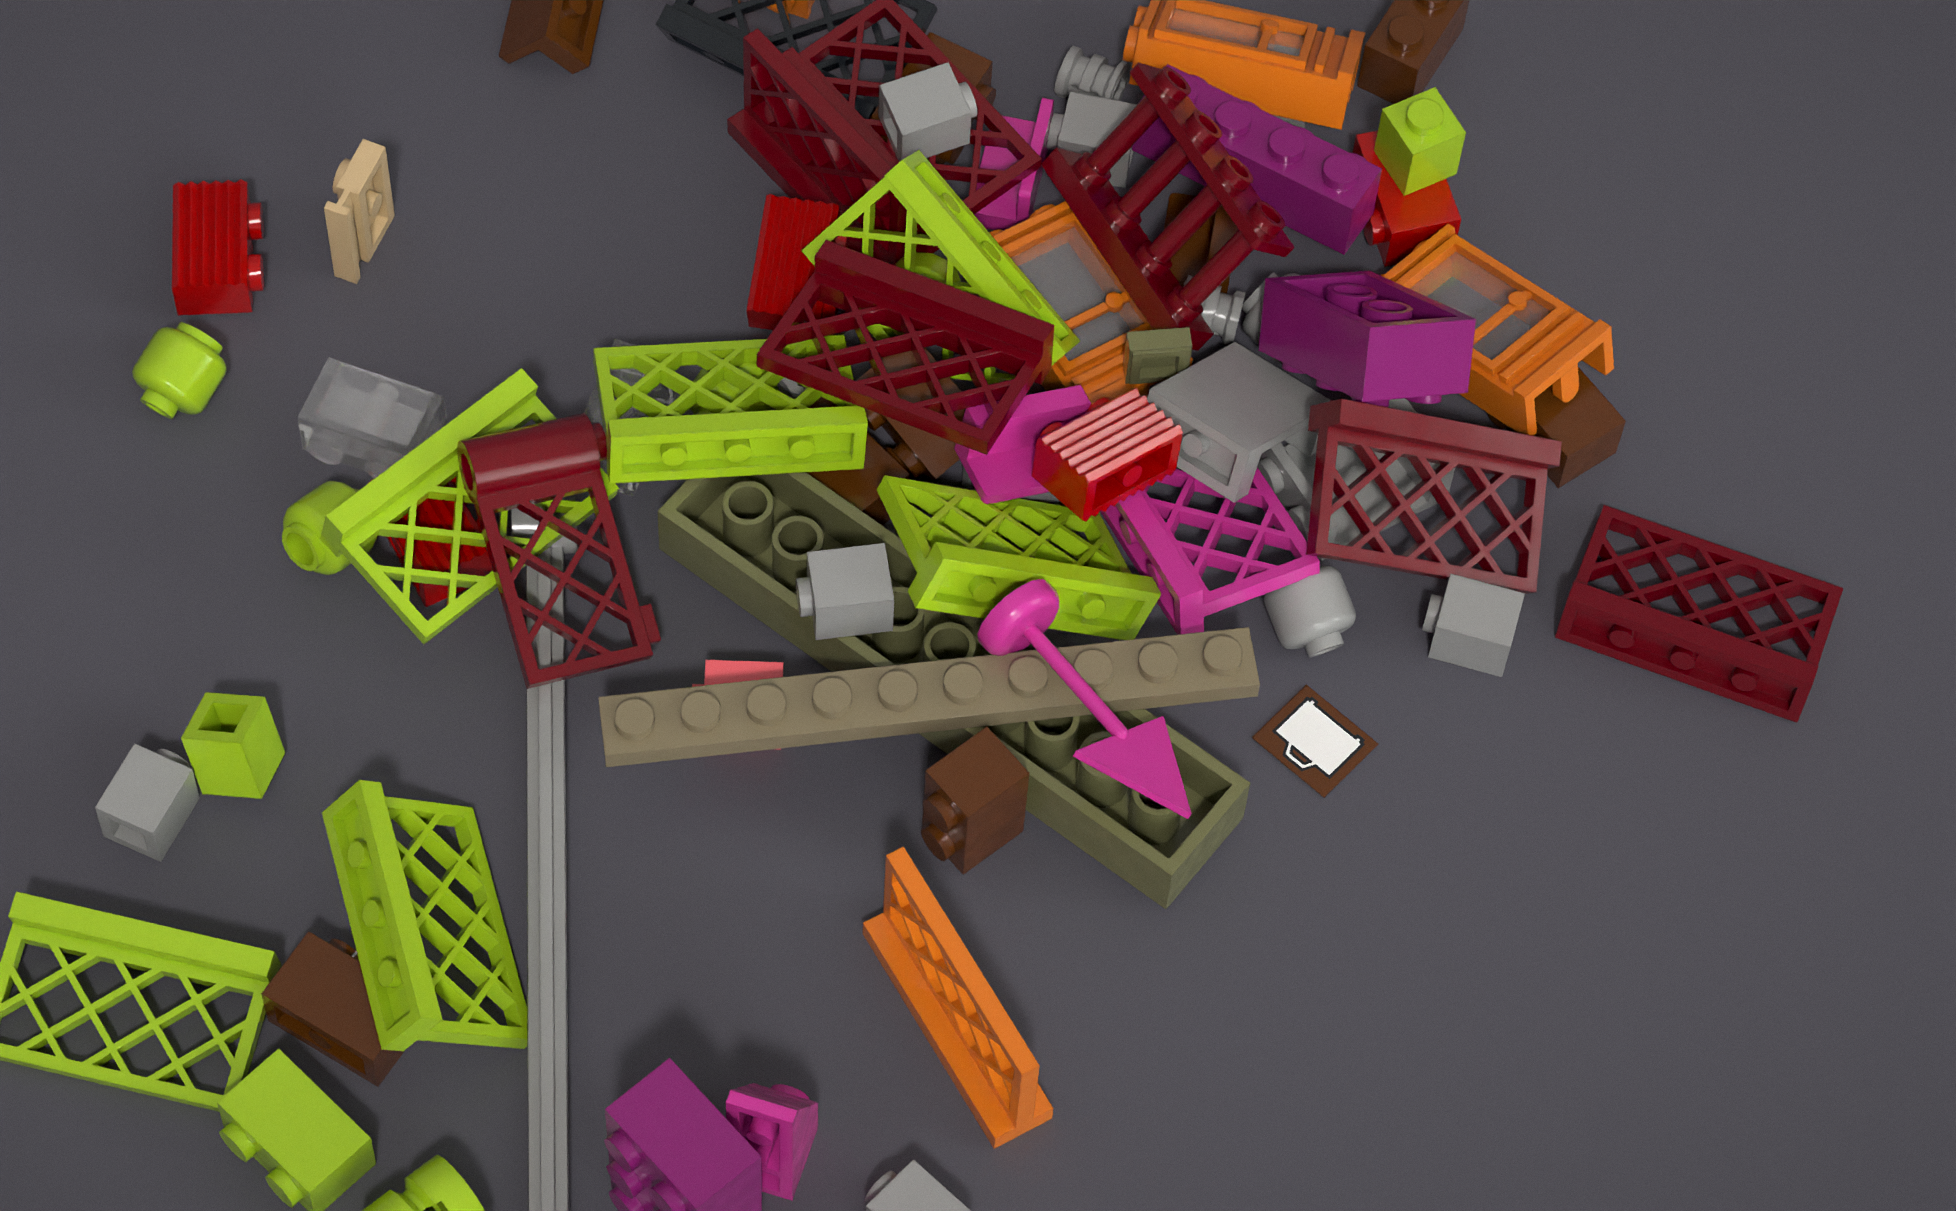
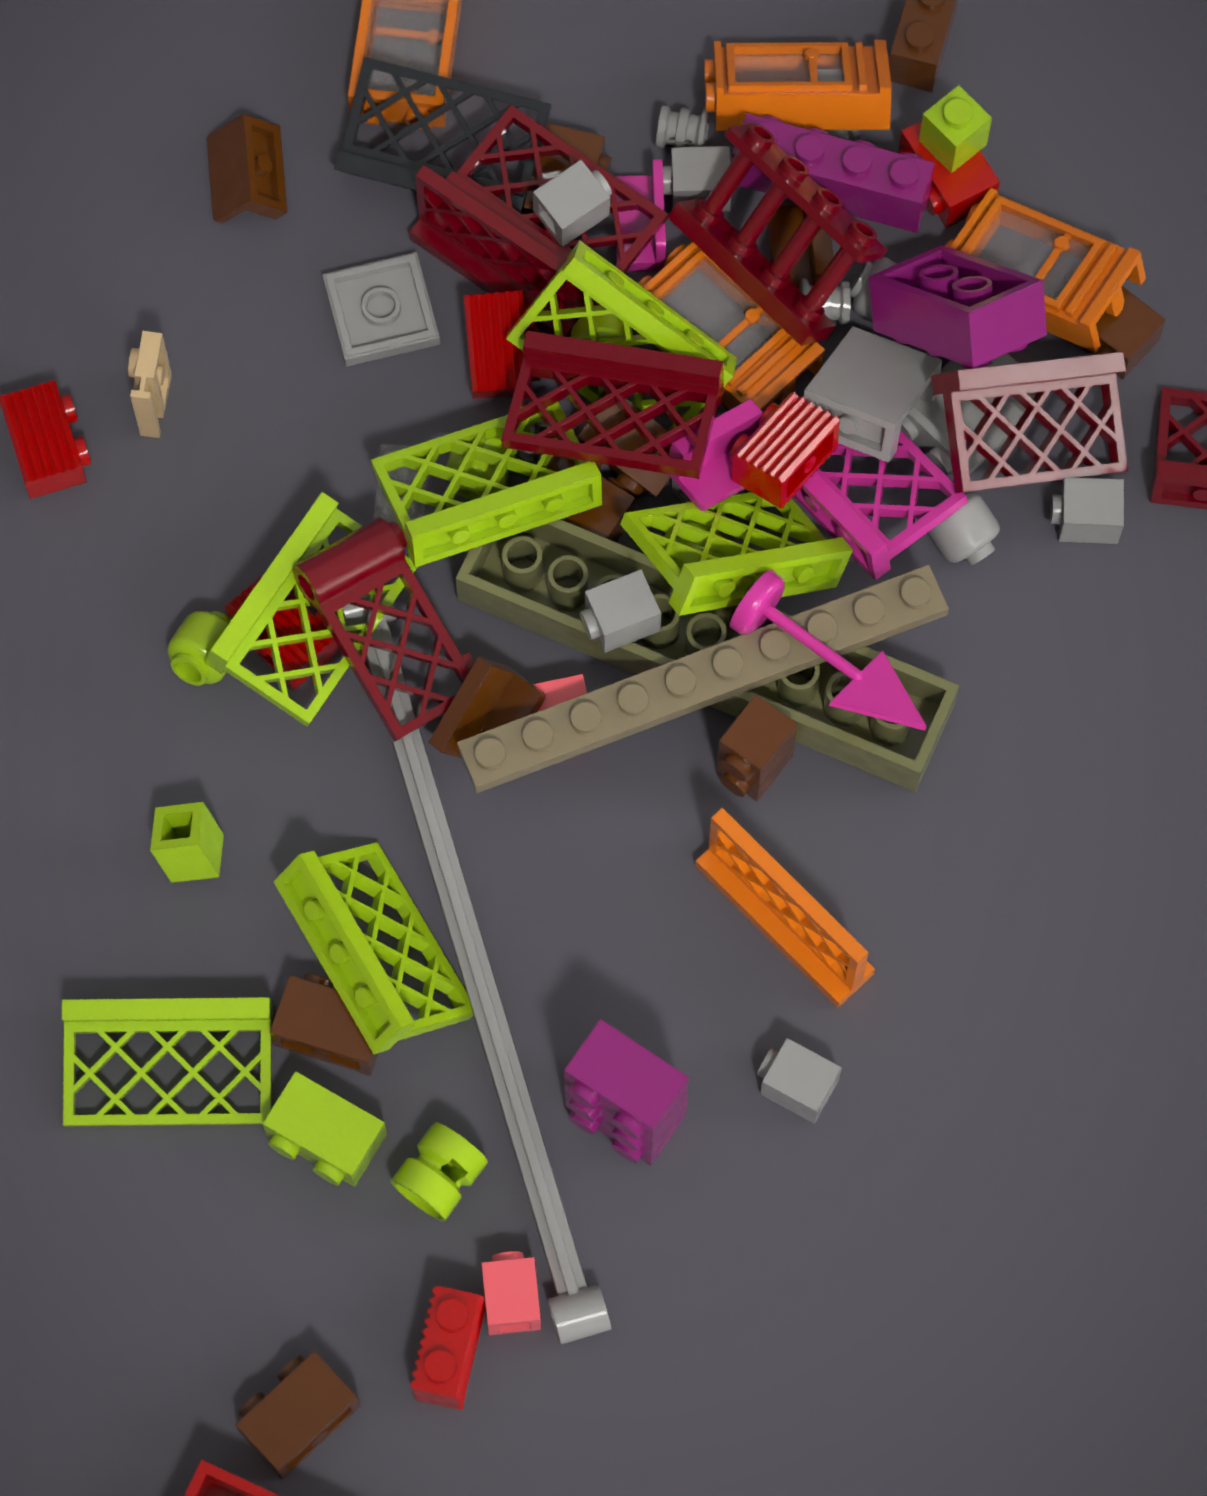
camera: 10 degrees left, 10 degrees up
(148, 801) = (134, 899): light grey brick -> none
(179, 370) = (49, 547): lime head -> none
(366, 418) = (209, 553): clear brick -> none
(652, 657) = (487, 699): none -> reddish brown panel
(668, 200) = (381, 309): none -> light grey tile
(780, 1127) = (680, 1039): dark pink slope -> none
(1156, 354) = (800, 357): olive tile -> none
(1315, 741) = (991, 630): sticker -> none

